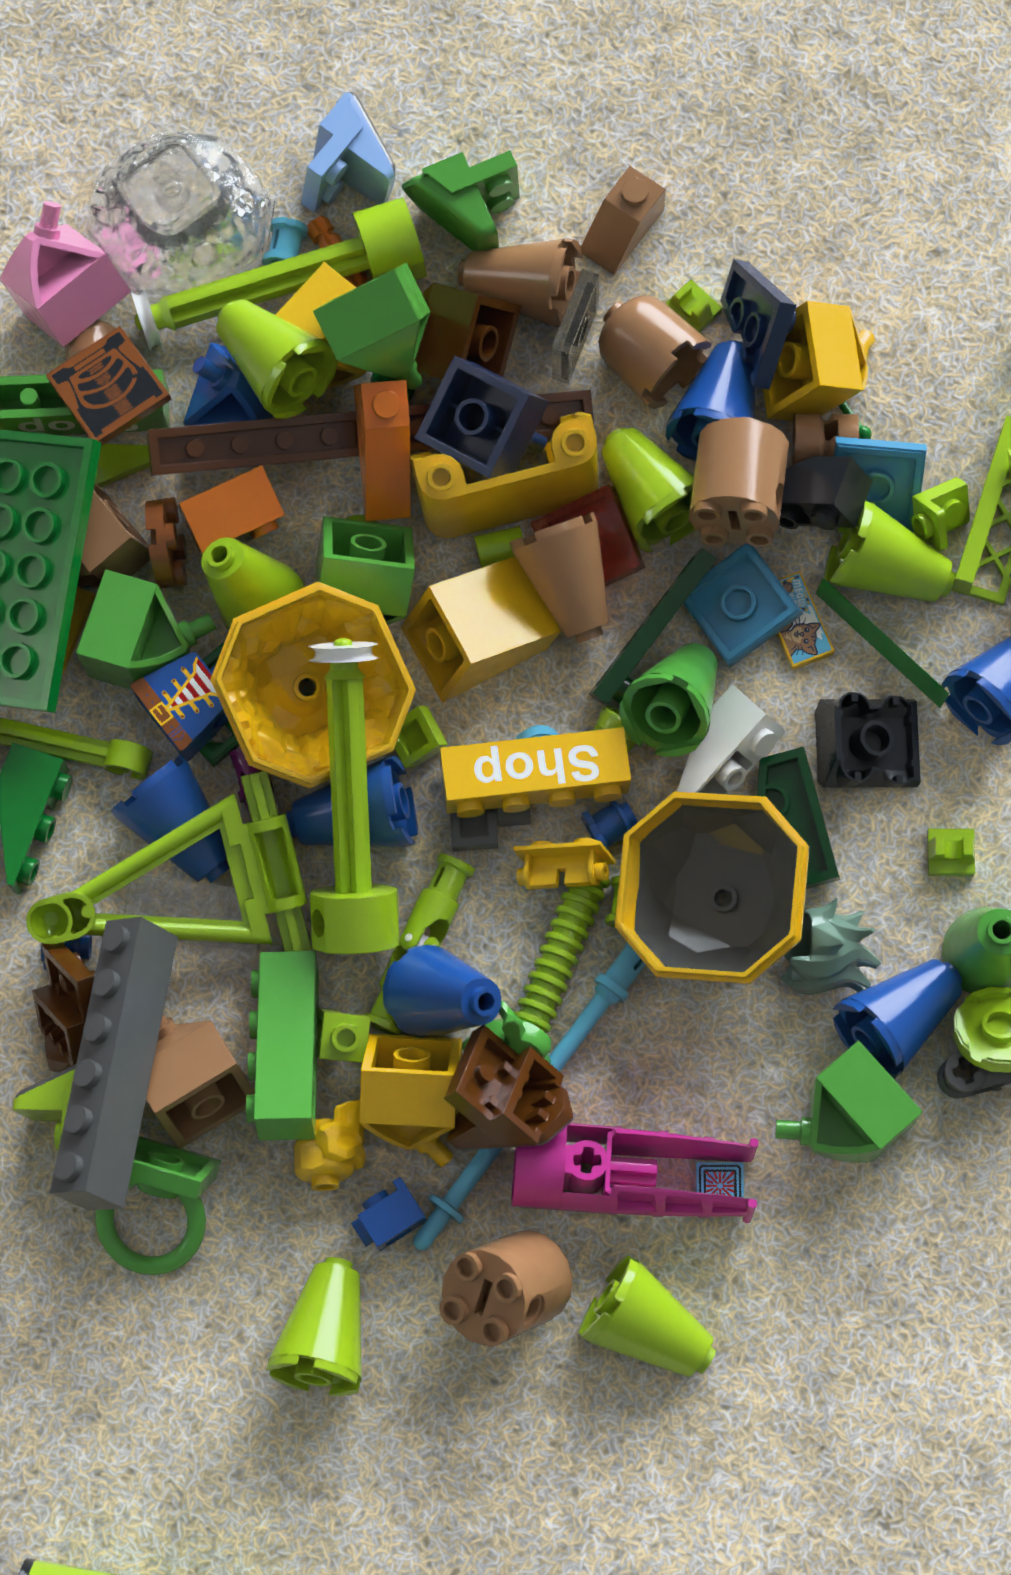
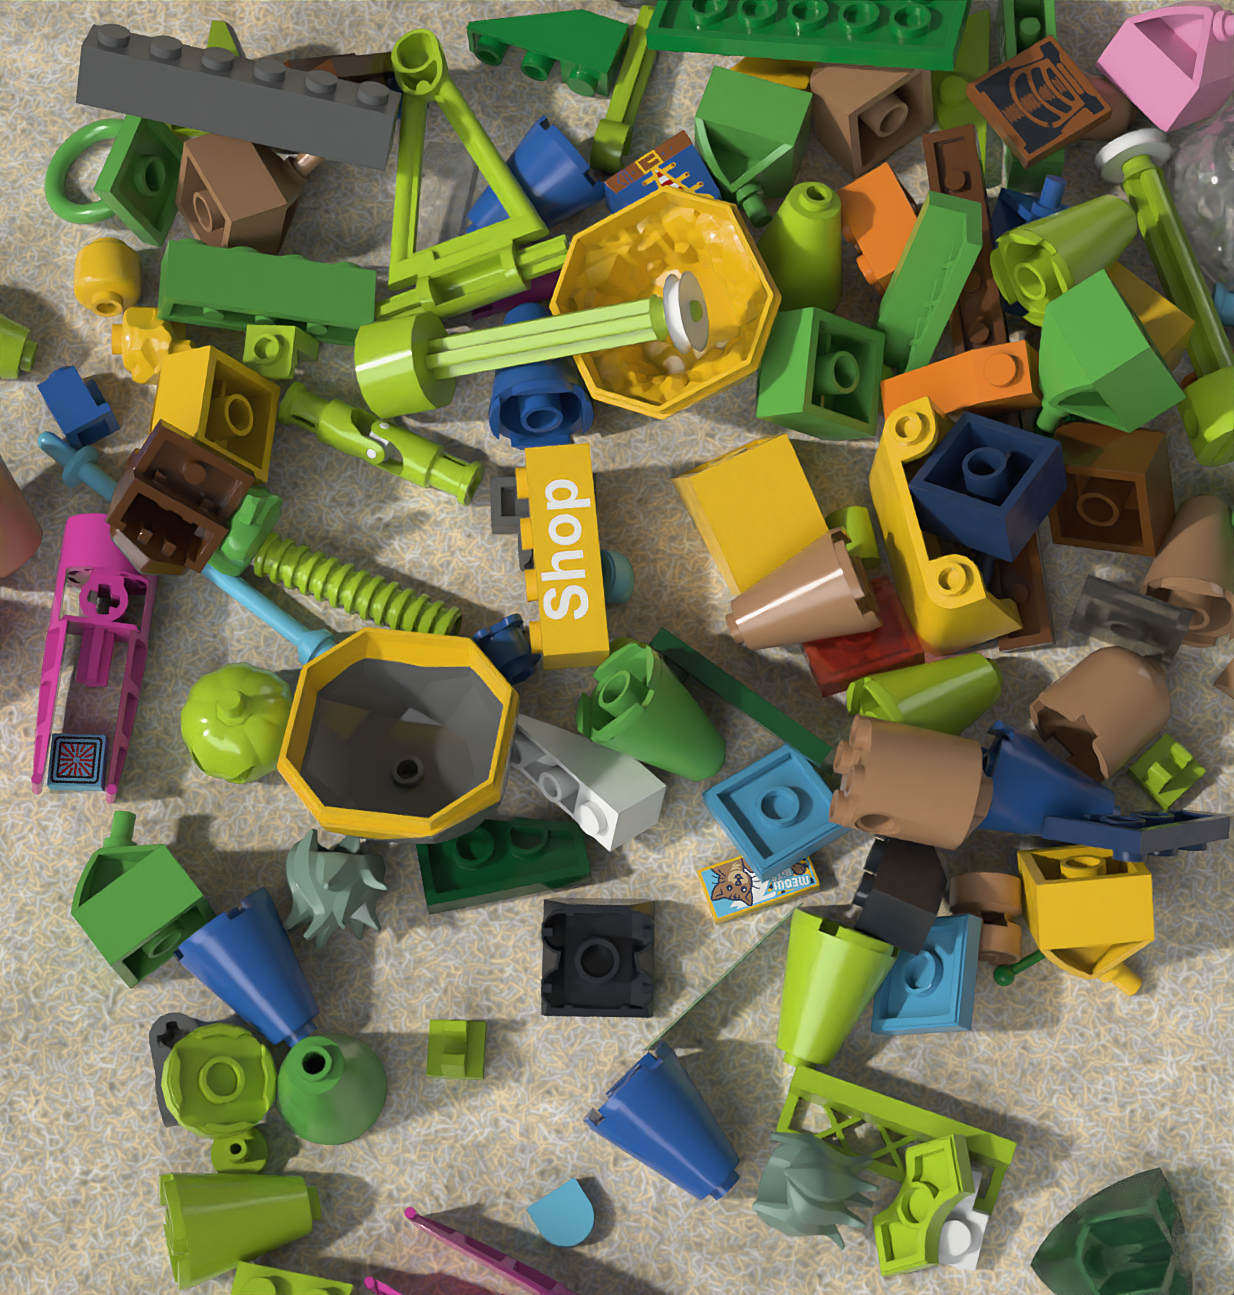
camera: 90 degrees right, 5 degrees down
(166, 546) = (842, 165): dark orange plate -> none
(260, 1200) = (107, 275): none -> yellow head
(290, 473) = (928, 279): none -> bright green fence
(419, 738) = (622, 441): lime tile -> none
(438, 993) = (314, 448): blue cone -> none
(582, 861) = (462, 573): yellow hinge -> none
(686, 1041) = (236, 722): none -> lime piece
(940, 511) = (891, 1055): lime bracket -> none

